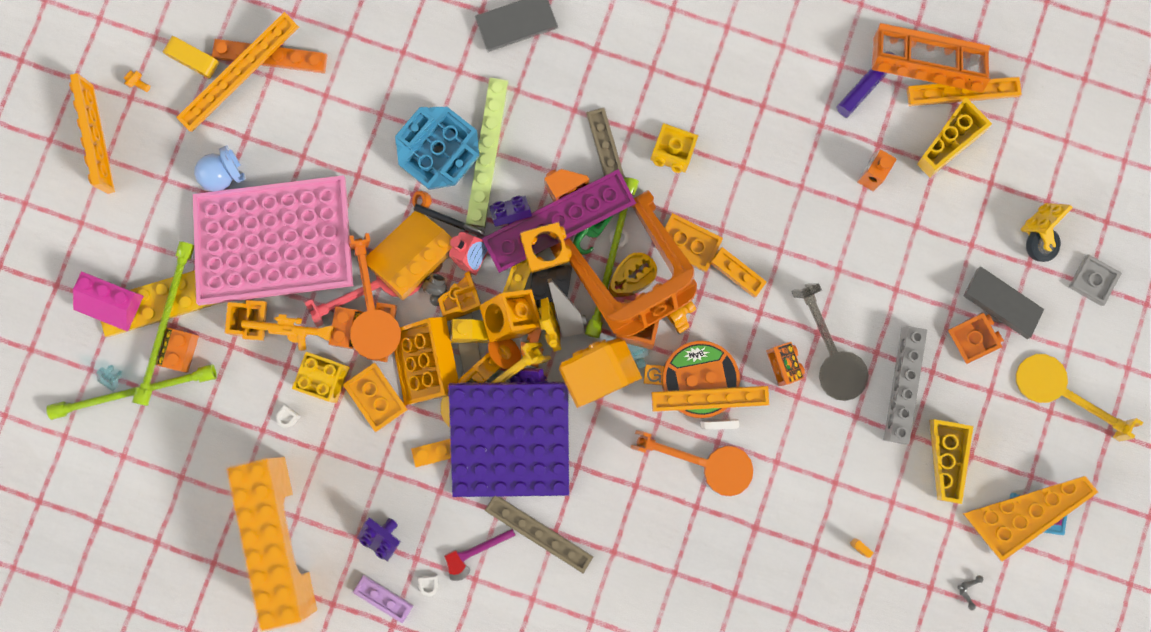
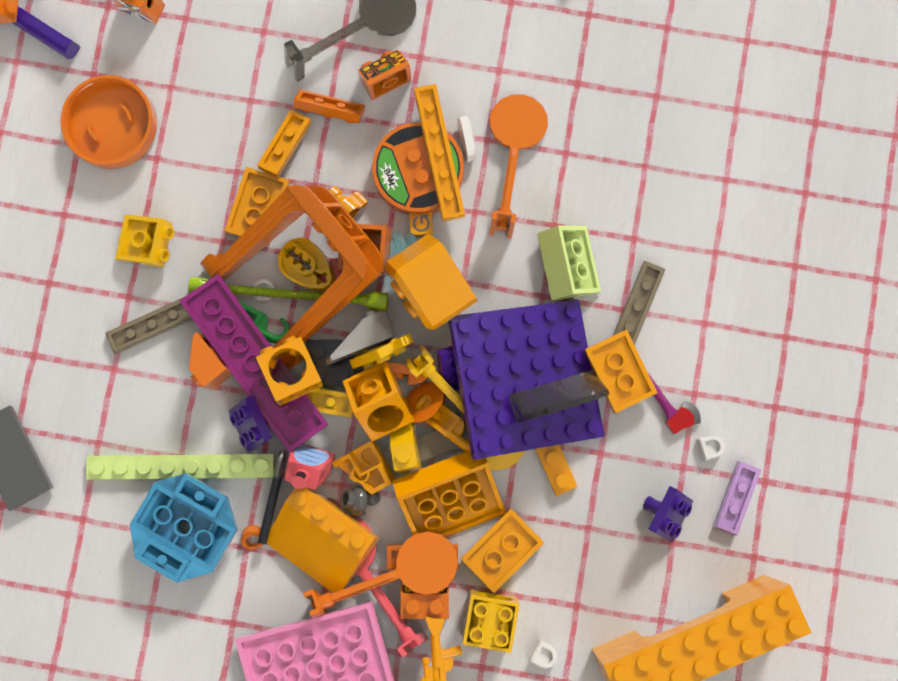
camera: 90 degrees left, 0 degrees up
(488, 462) = (557, 396): none -> clear smoke windscreen
(502, 519) = (621, 371): none -> light orange plate
(601, 492) = (568, 262): none -> yellowish green slope
(764, 314) = (329, 106): none -> orange plate
(777, 132) = (108, 122): none -> orange brick

